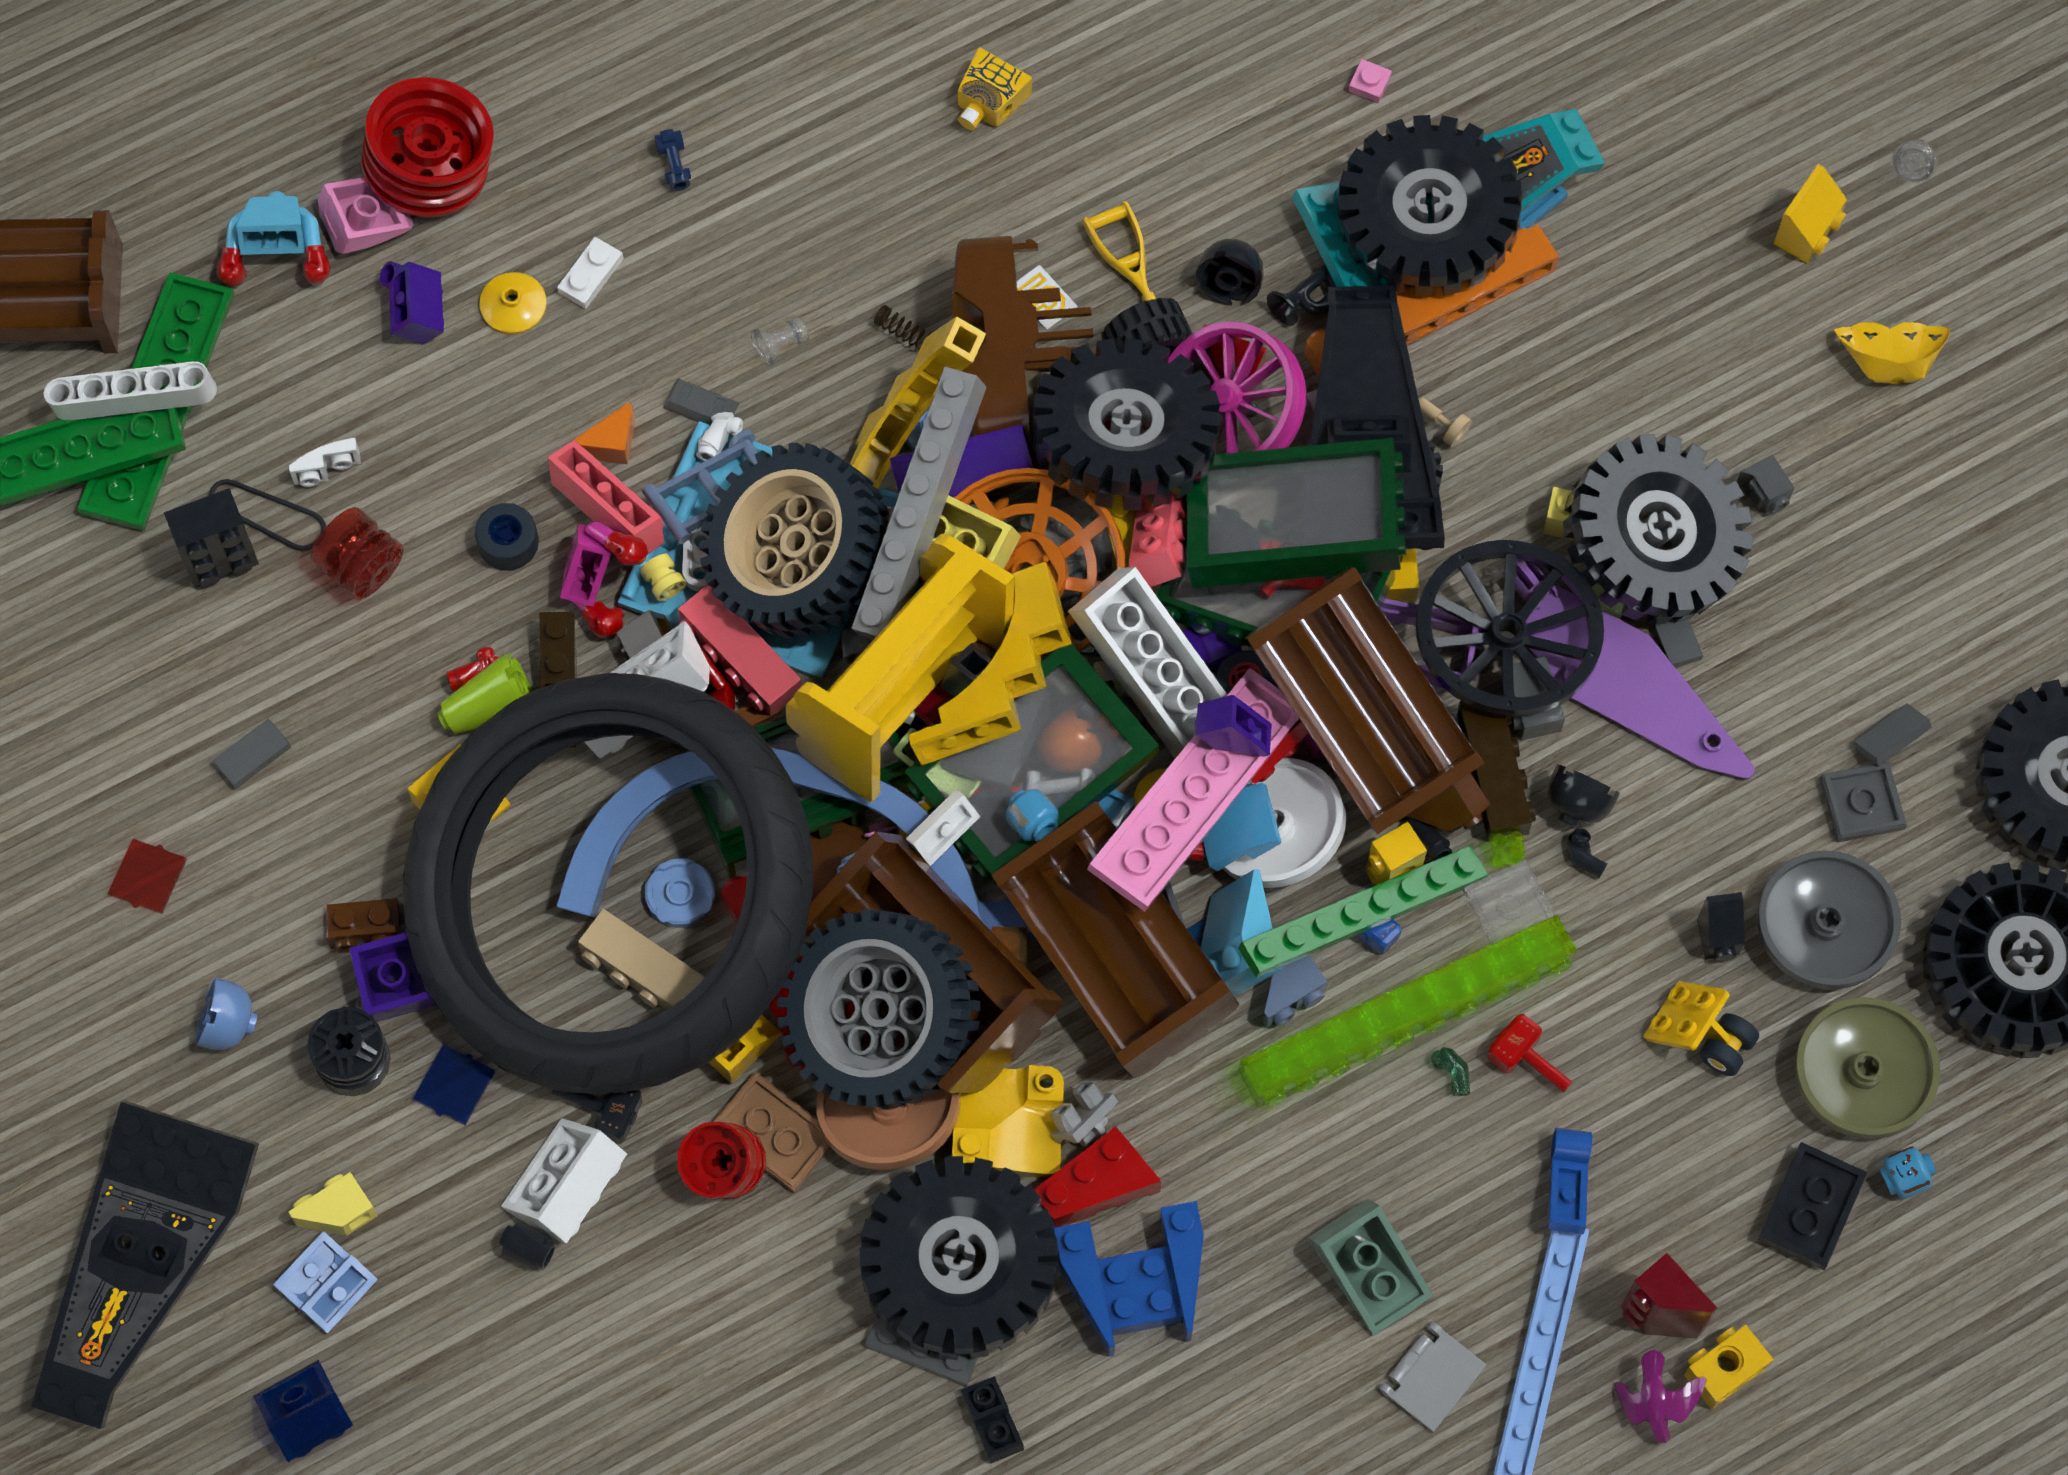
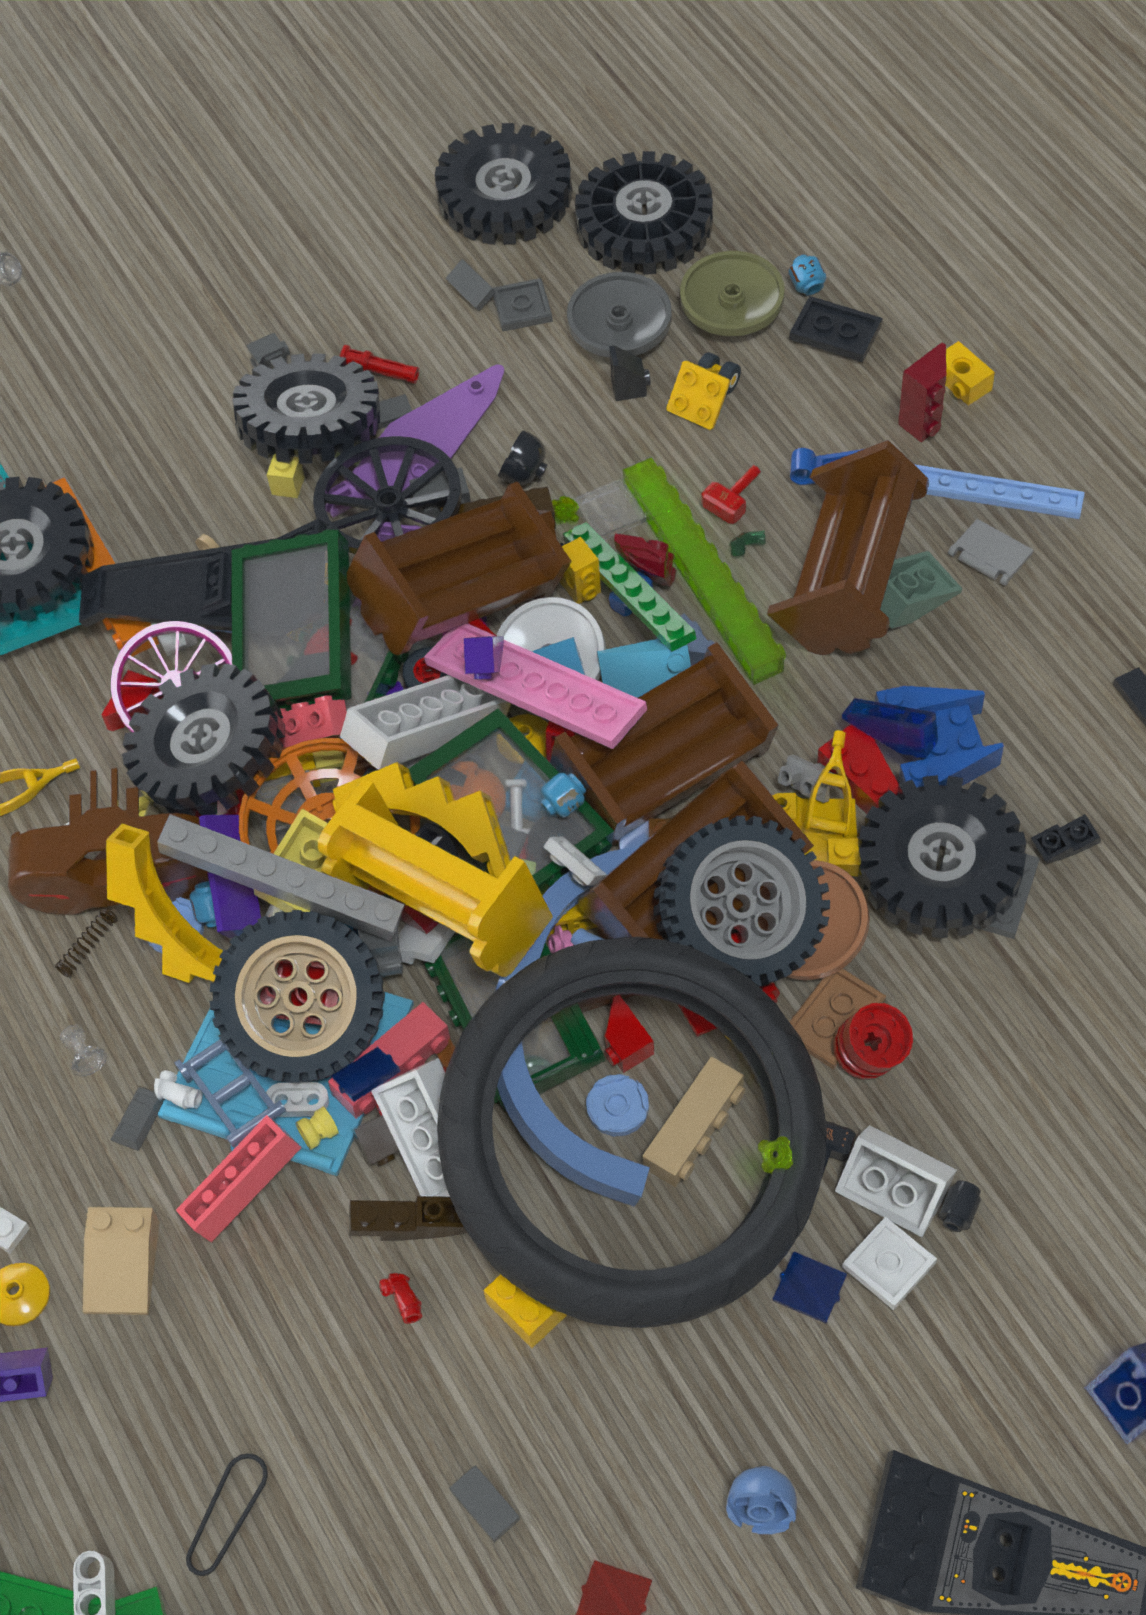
camera: 85 degrees left, 10 degrees down
(211, 538) = (265, 1544): black brick -> none
(313, 466) = (181, 1460): white slope -> none
(325, 1282) = (1011, 1386): medium blue slope -> none
(336, 1208) = (941, 1375): light yellow slope -> none
(352, 1070) = (794, 1391): black wheel -> none
(357, 553) = (282, 1406): clear red wheel -> none
(361, 922) = (657, 1380): reddish brown bracket -> none
(389, 978) = (716, 1342): dark purple brick -> none
(469, 1166) = (889, 1263): none -> white plate
(484, 695) = (434, 1273): lime cone -> none
(500, 525) = (261, 1264): black wheel -> none
(536, 394) = (119, 1260): none -> tan slope
(544, 1020) = (784, 1158): none -> clear neon green plate
(586, 569) = (301, 1189): torso -> none
(611, 437) = (170, 1184): orange slope -> none
(705, 617) = (366, 1073): none -> clear blue piece
(1063, 1135) = (834, 780): none -> yellow piece
(1138, 1212) = (898, 727): none -> clear blue slope
(1152, 322) = (105, 743): black tyre -> none
(1230, 272) = (52, 700): black cylinder -> none
(1285, 305) = (87, 659): black piece -> none
(1398, 1178) = (852, 550): none -> reddish brown piece
(1413, 941) = (647, 557): none -> dark red slope
(1581, 854) = (562, 468): black arm -> none
(1655, 1402) = (999, 406): magenta animal -> none
(1755, 607) = (380, 365): none -> red pin
(1812, 216) = (46, 328): yellow slope -> none
(1891, 354) = (166, 285): yellow piece -> none

